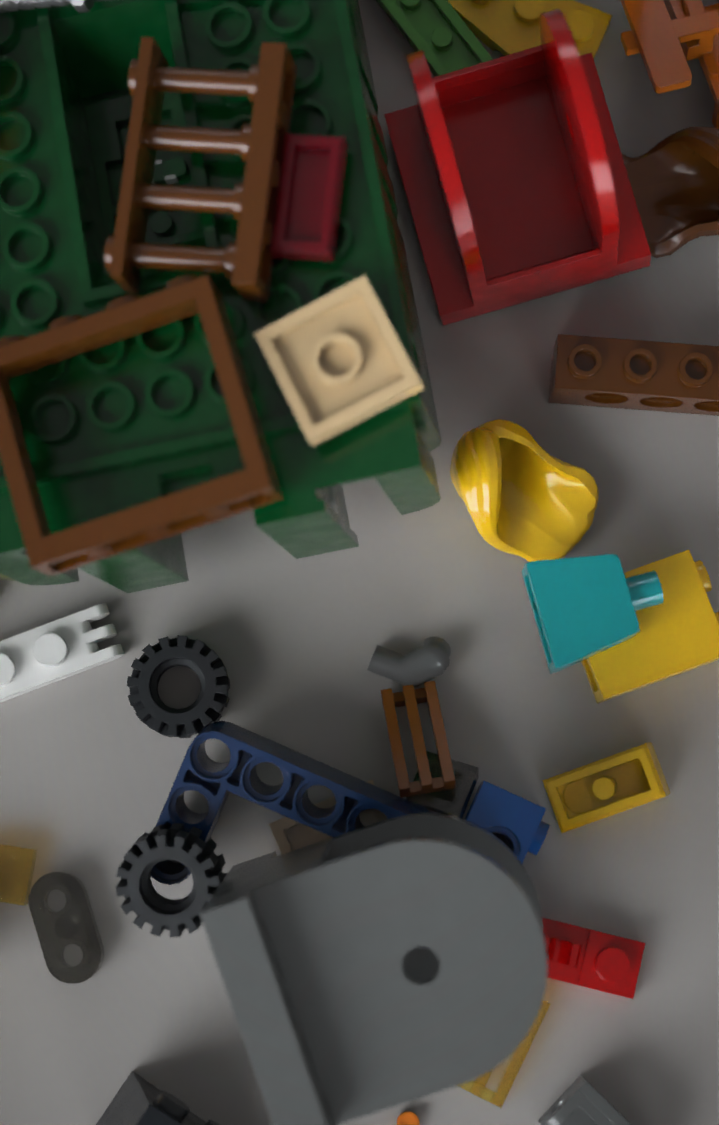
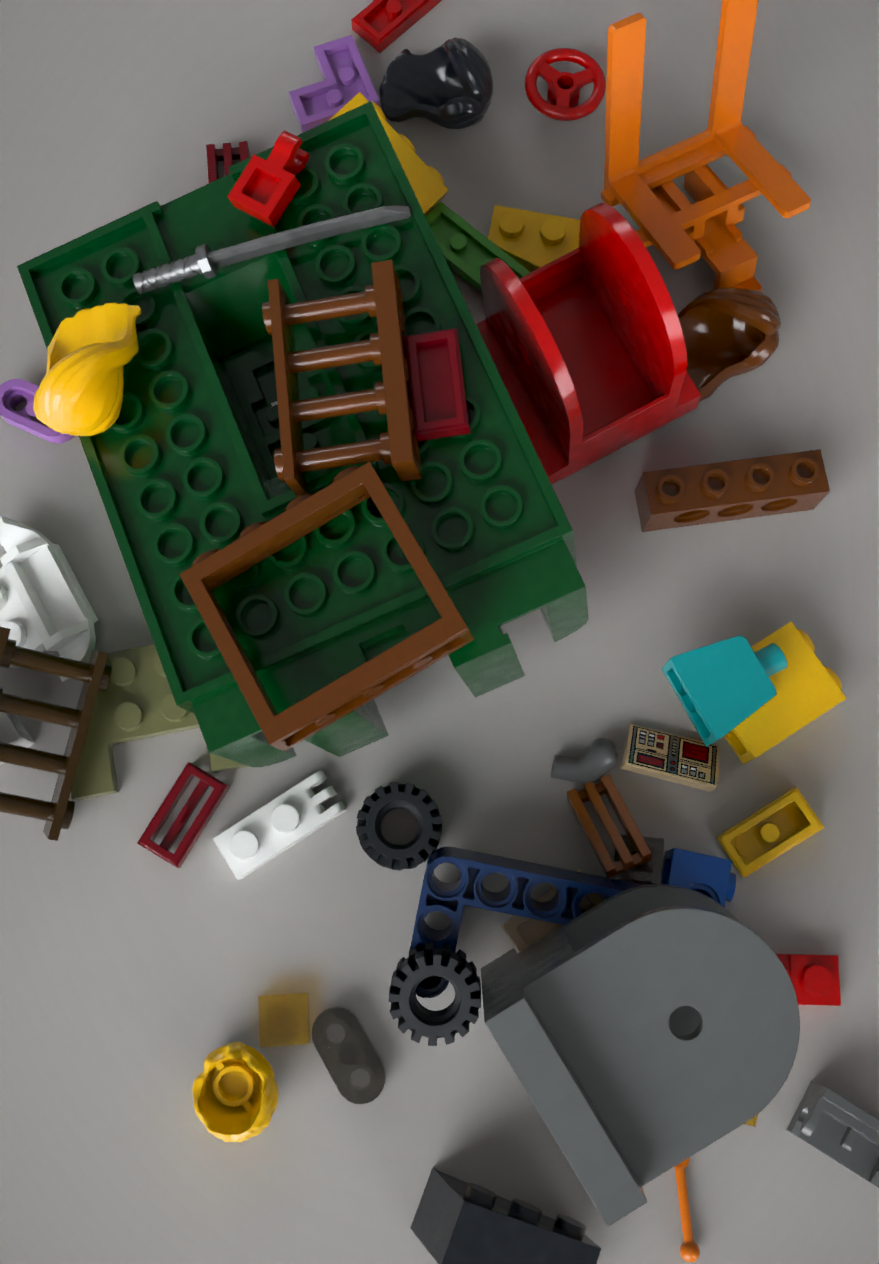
camera: 15 degrees left, 5 degrees down
(338, 361) = (497, 511): tan plate -> none
(512, 677) = (671, 758): none -> slope
(521, 493) = (643, 607): yellow piece -> none

